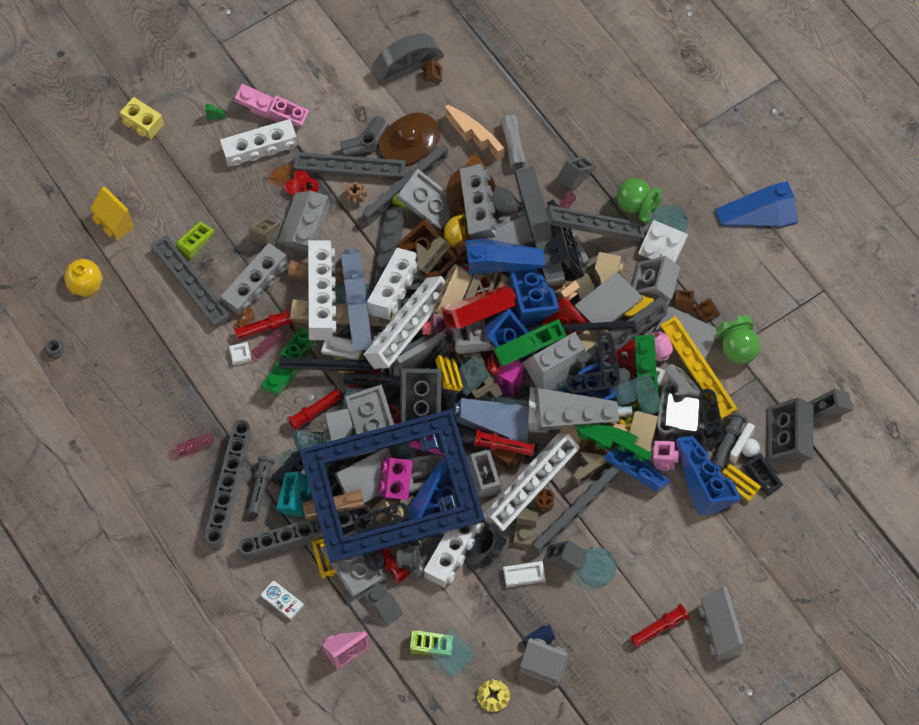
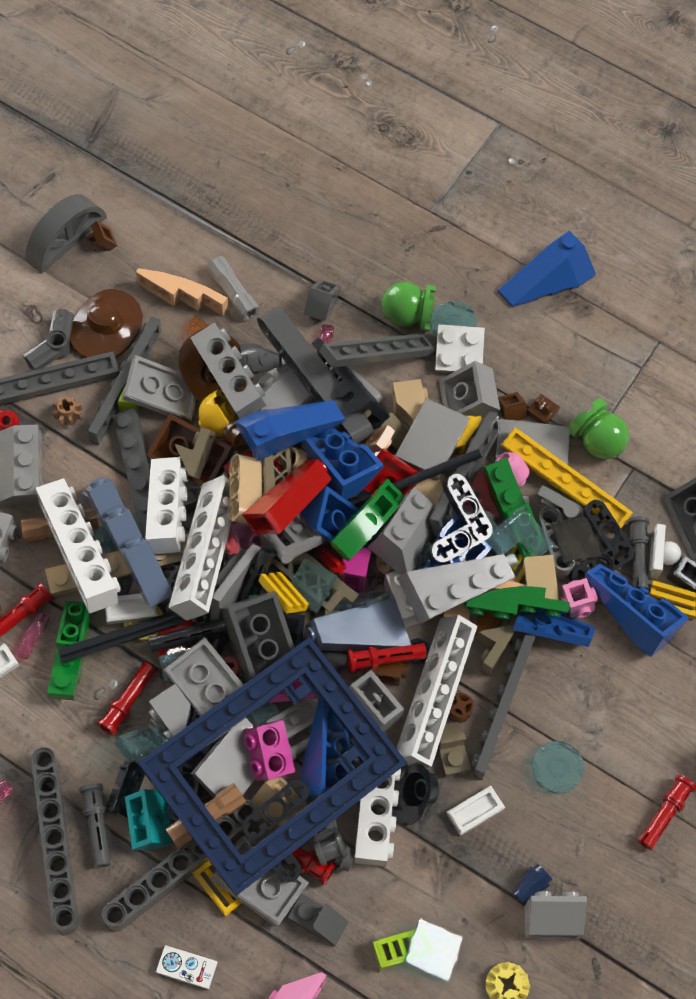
camera: 30 degrees left, 0 degrees up
(566, 556) = (518, 769): dark grey slope -> none

